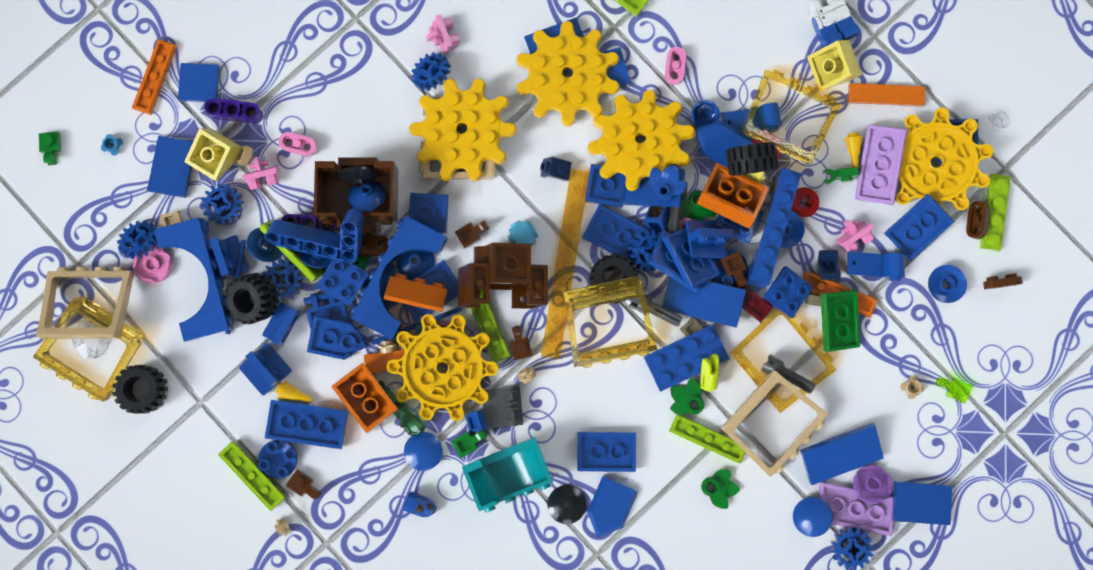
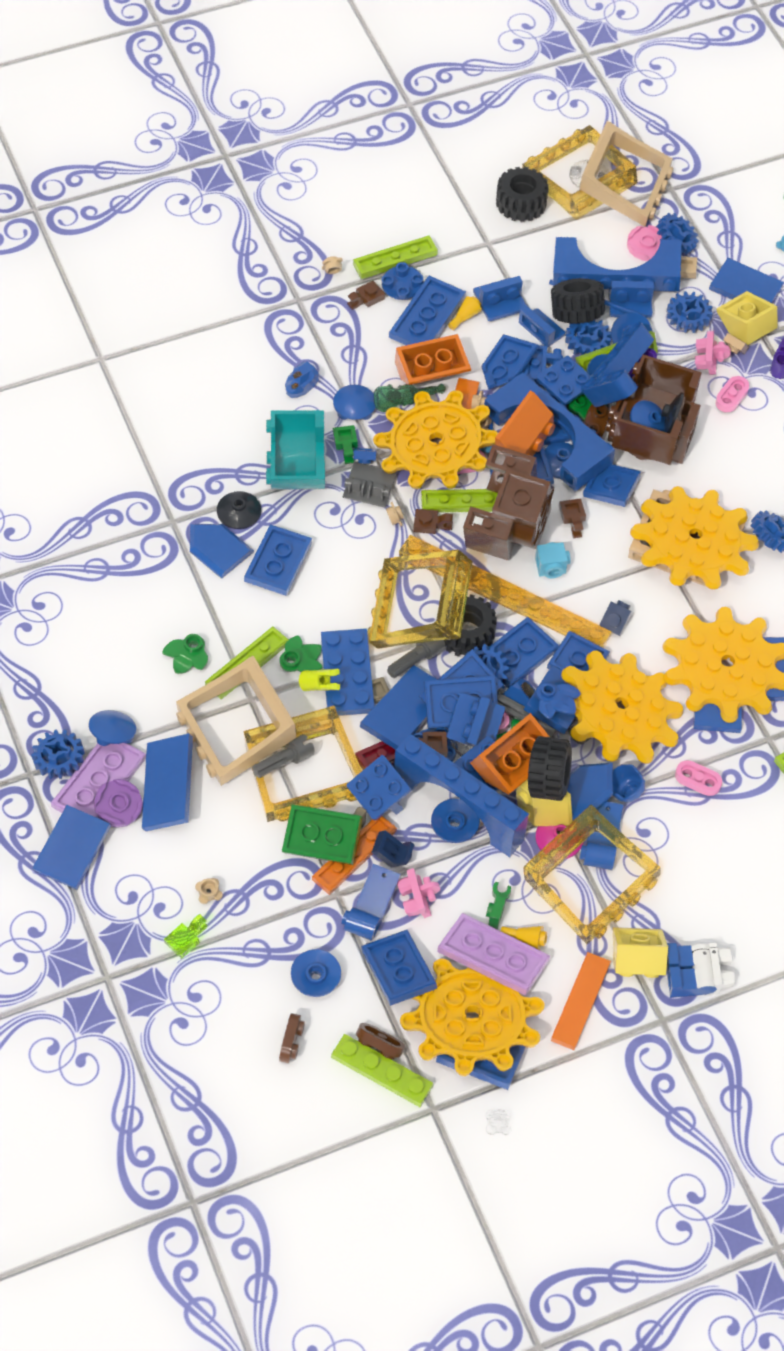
camera: 105 degrees right, 25 degrees down
(812, 201) = (480, 846): red gear -> none

